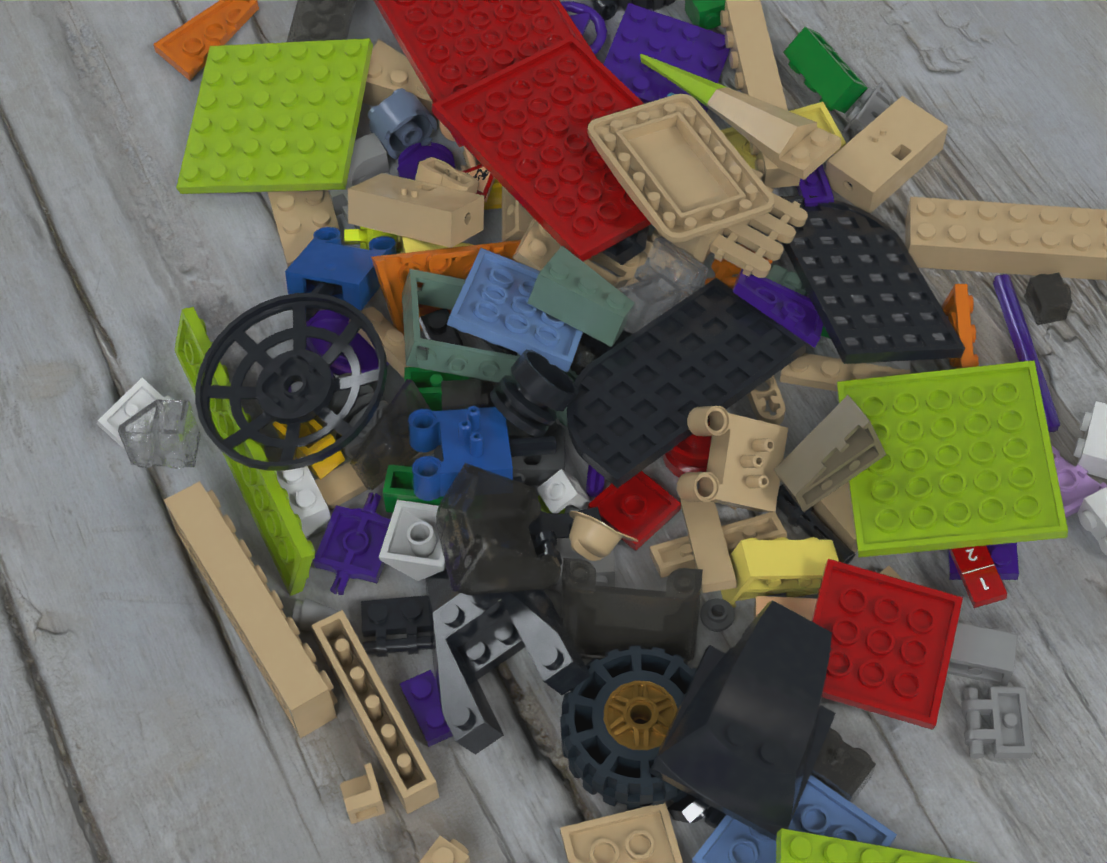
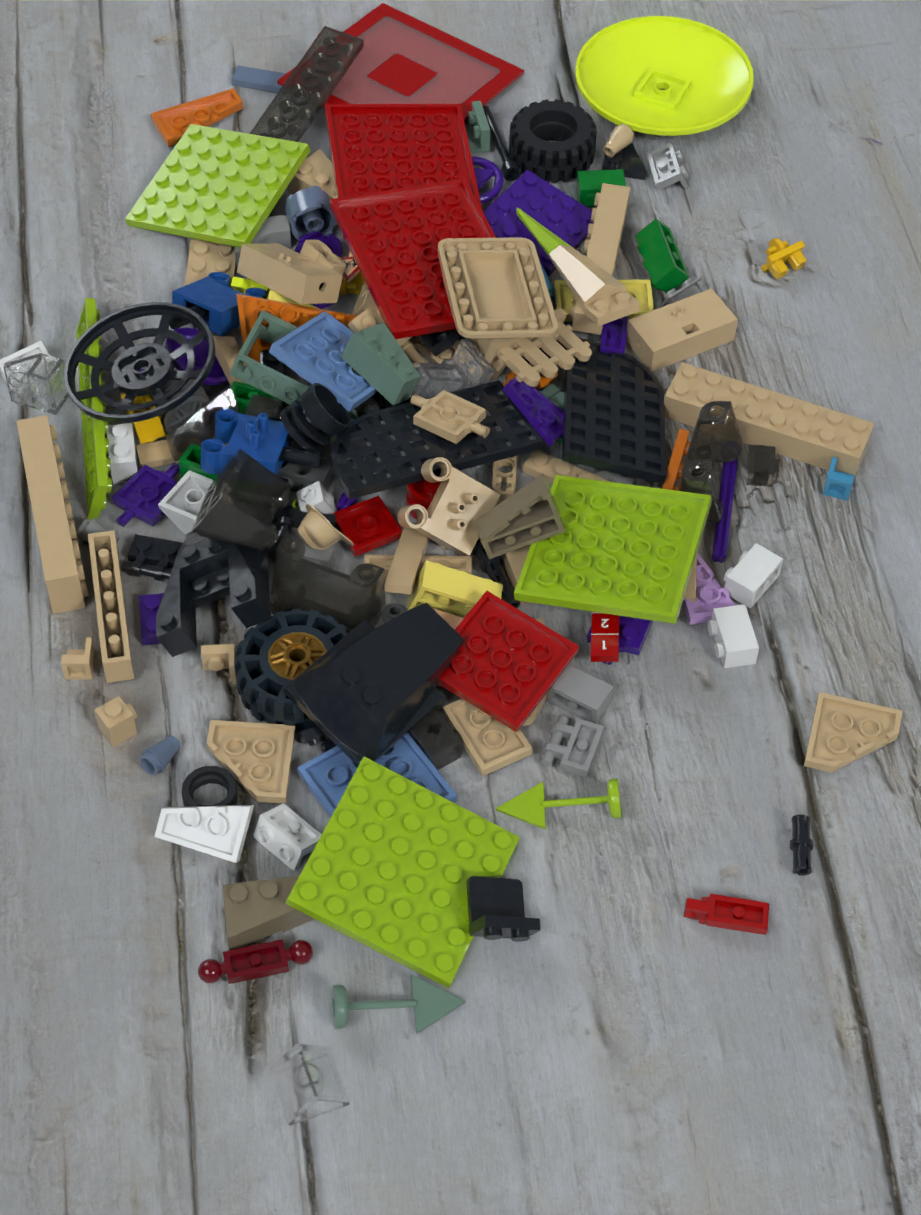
camera: 15 degrees right, 5 degrees down
(534, 737) = (219, 657): none -> tan bracket
(689, 344) = (449, 416): none -> tan plate
(899, 749) = (486, 739): none -> tan plate
(947, 27) = (781, 253): none -> yellow hips
(984, 821) = (531, 805): none -> lime piece
(994, 286) = (713, 440): none -> clear smoke windscreen

